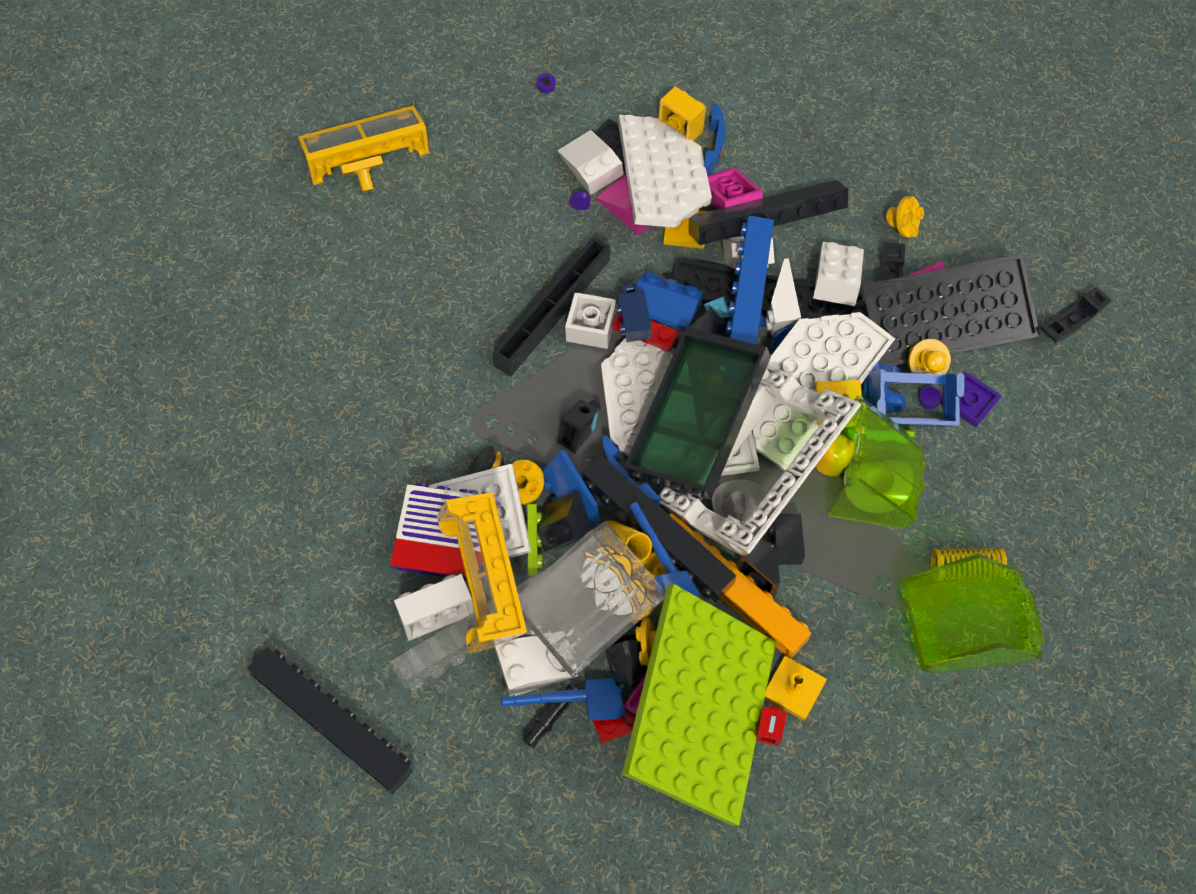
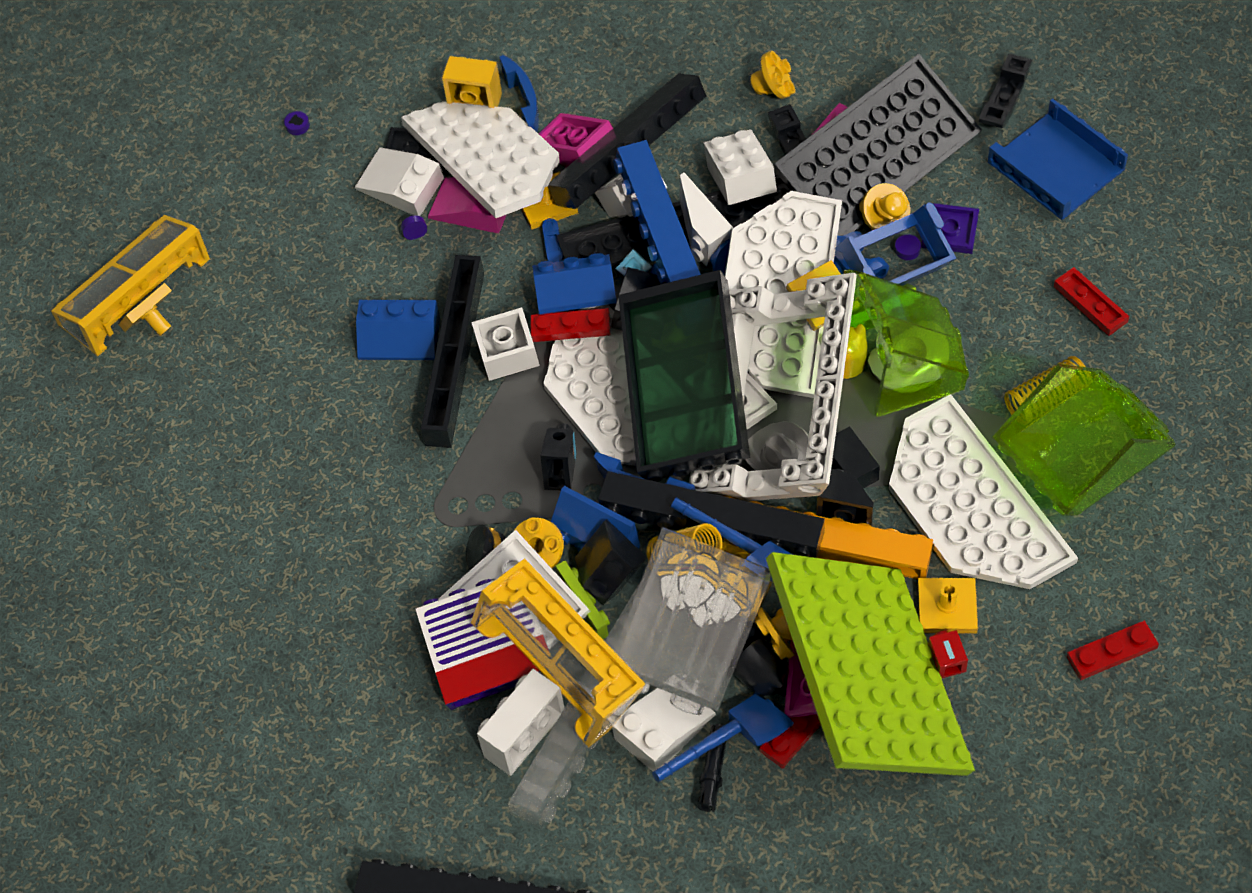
camera: 20 degrees left, 5 degrees down
(523, 269) = (397, 329): none -> blue slope
(634, 314) = (551, 311): dark blue brick -> none
(675, 252) = (550, 233): none -> blue piece
(859, 619) = (972, 502): none -> white plate
(898, 791) = (1112, 650): none -> red plate
(1044, 512) = (1091, 301): none -> red plate
(1086, 390) = (1059, 160): none -> blue panel

